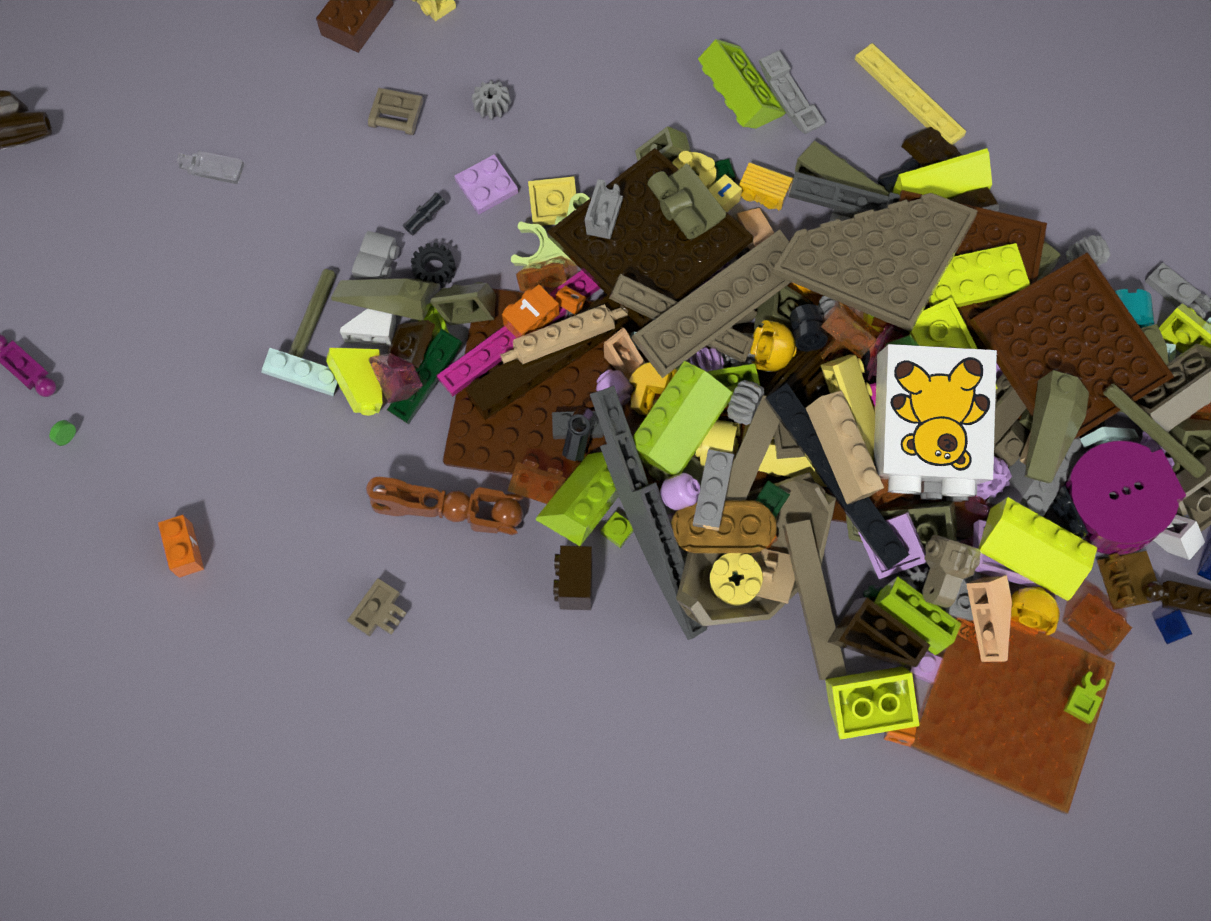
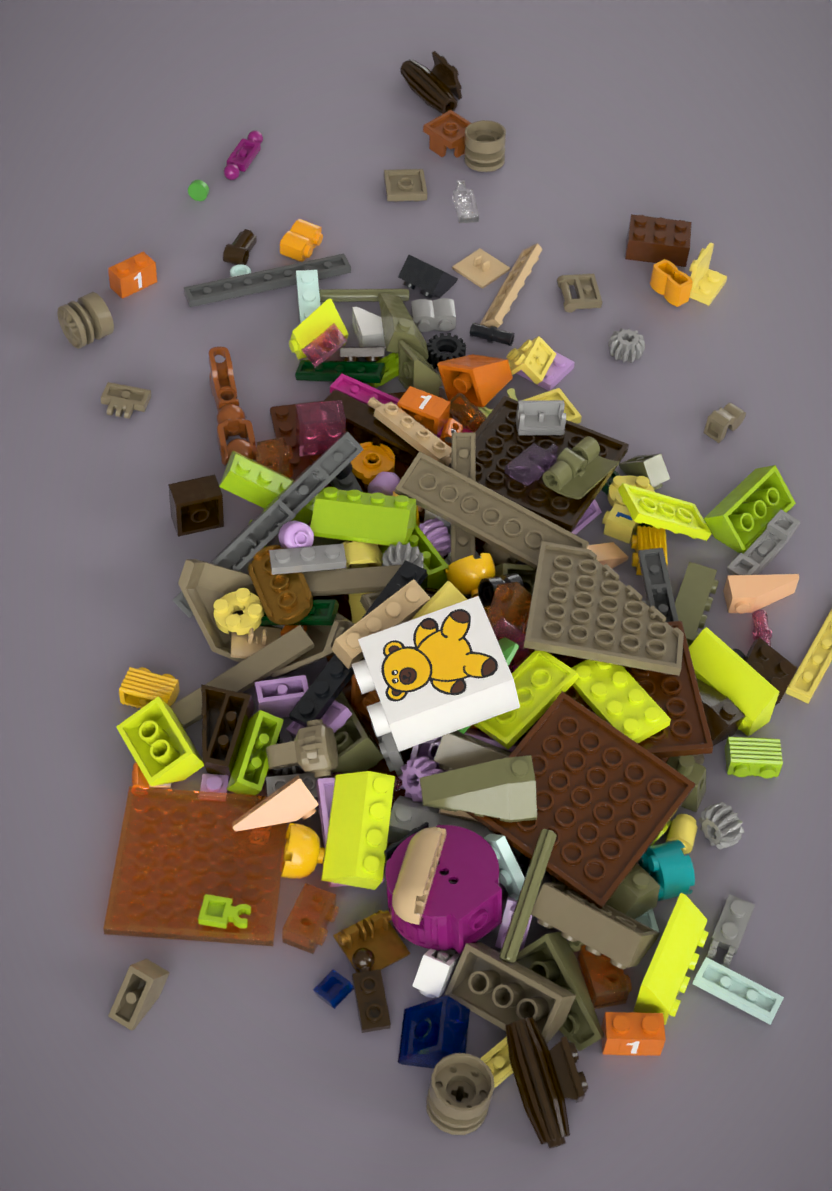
camera: 65 degrees right, 20 degrees down
(95, 138) = (447, 131): none -> dark orange panel
(137, 112) = (485, 146): none -> dark tan wheel
(154, 214) = (405, 185): none -> dark tan plate
(188, 421) = (239, 250): none -> dark brown piece
(200, 350) = (301, 240): none -> light orange brick
(221, 430) = (238, 270): none -> light aqua tile
(244, 618) = (85, 320): none -> dark tan wheel
(247, 407) = (263, 280): none -> dark grey plate
(315, 188) = (481, 268): none -> tan piece
(315, 244) = (426, 277): none -> black slope
(364, 170) = (511, 286): none -> tan plate
(425, 25) = (671, 282): none -> light orange brick
(483, 197) = (532, 358): none -> light yellow bracket
(493, 250) = (475, 377): none -> orange slope
(518, 421) = (319, 426): none -> clear pink brick
(565, 401) = (368, 471): none -> light orange plate
(629, 62) = (721, 420): none -> dark tan leg
(663, 239) = (532, 463): none -> clear purple bracket
(736, 154) = (664, 512): none -> neon yellow plate
(797, 693) = (143, 686): none -> yellow brick
(841, 122) = (754, 592): none -> light nougat slope
(849, 570) = (280, 695): none -> lavender brick
(870, 131) = (761, 626): none -> clear pink pin
(1020, 195) = (753, 757): none -> lime brick
(1127, 511) = (417, 874): none -> tan brick
(1142, 797) = (138, 993): none -> dark tan slope

